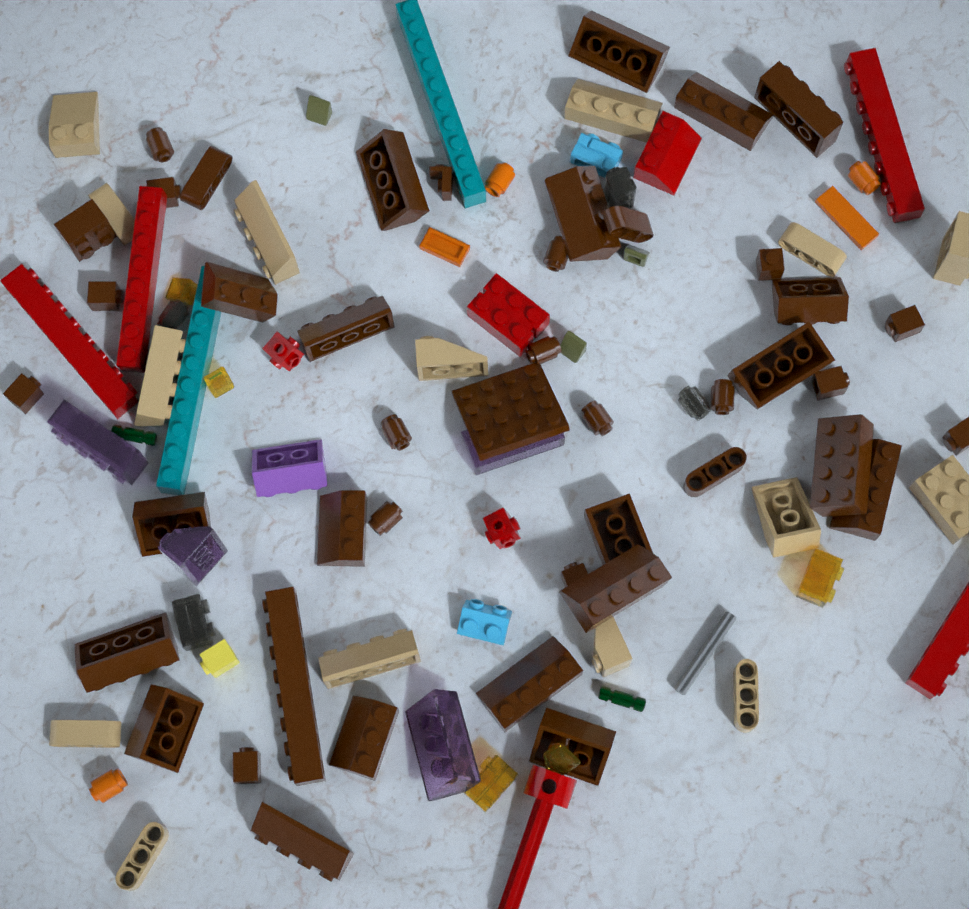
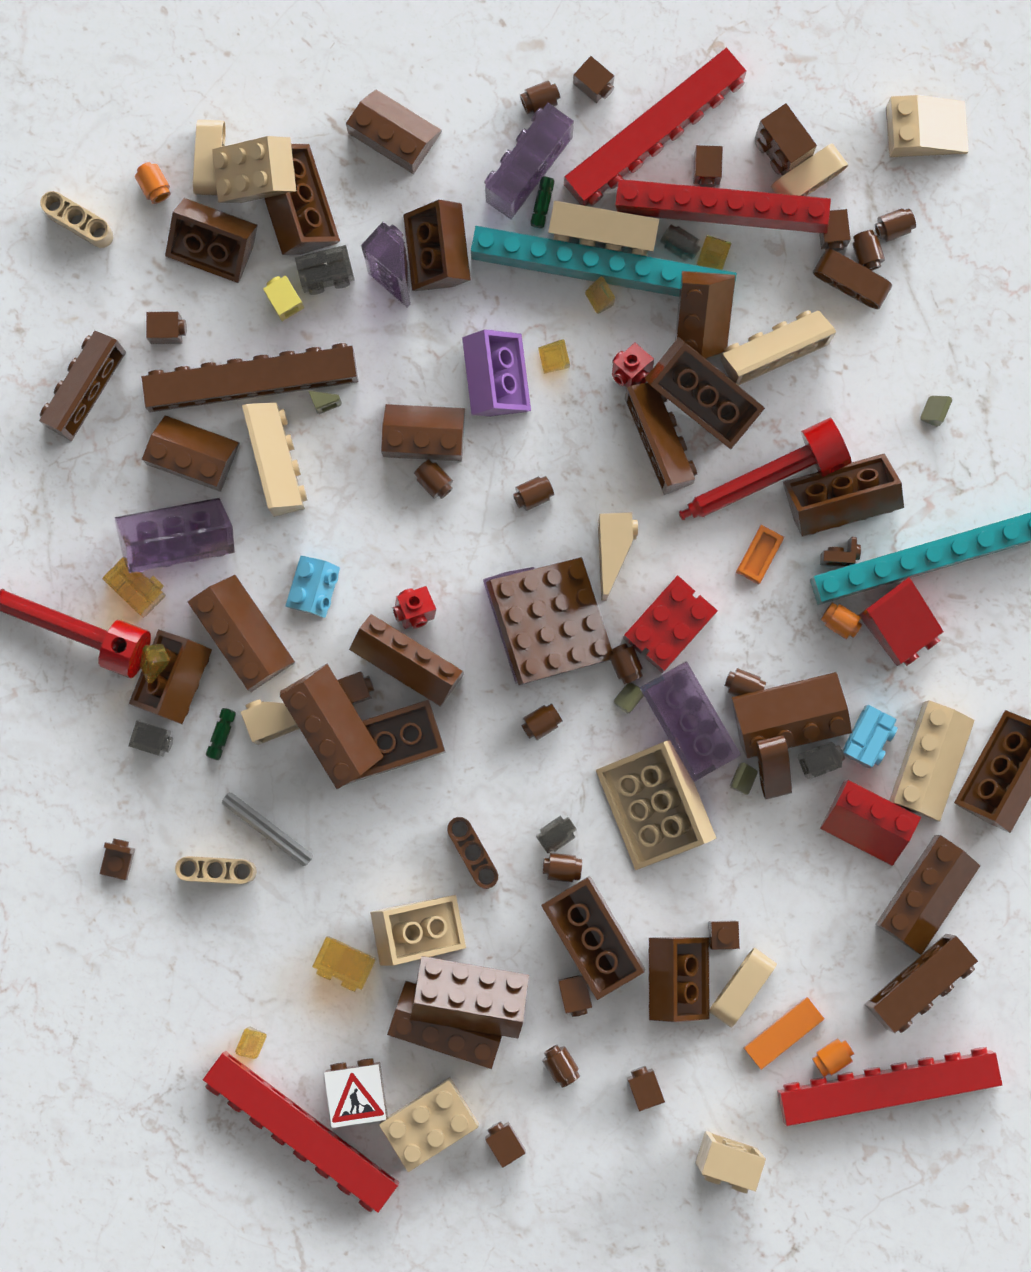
camera: 90 degrees right, 10 degrees up
(38, 439) = (539, 96): none -> reddish brown brick
(65, 567) = (392, 130): none -> reddish brown slope
(100, 683) = (254, 169): none -> tan brick
(181, 165) = (868, 250): none -> reddish brown brick
(273, 419) = (554, 356): none -> clear yellow slope
(307, 287) = (704, 393): none -> reddish brown brick
(315, 618) = (324, 401): none -> olive slope
(354, 194) = (822, 448): none -> red piece
(499, 131) = (902, 623): none -> red slope
(550, 530) = (406, 660): none -> reddish brown slope
(591, 292) = (690, 721): none -> clear purple slope
(630, 760) = (151, 739): none -> clear smoke brick
(663, 323) = (655, 805): none -> tan slope
(742, 788) = (117, 859): none -> reddish brown bracket
(891, 392) = (561, 1065): none -> reddish brown brick
(896, 659) = (251, 1043): none -> clear yellow slope
(932, 563) = (355, 1093): none -> piece

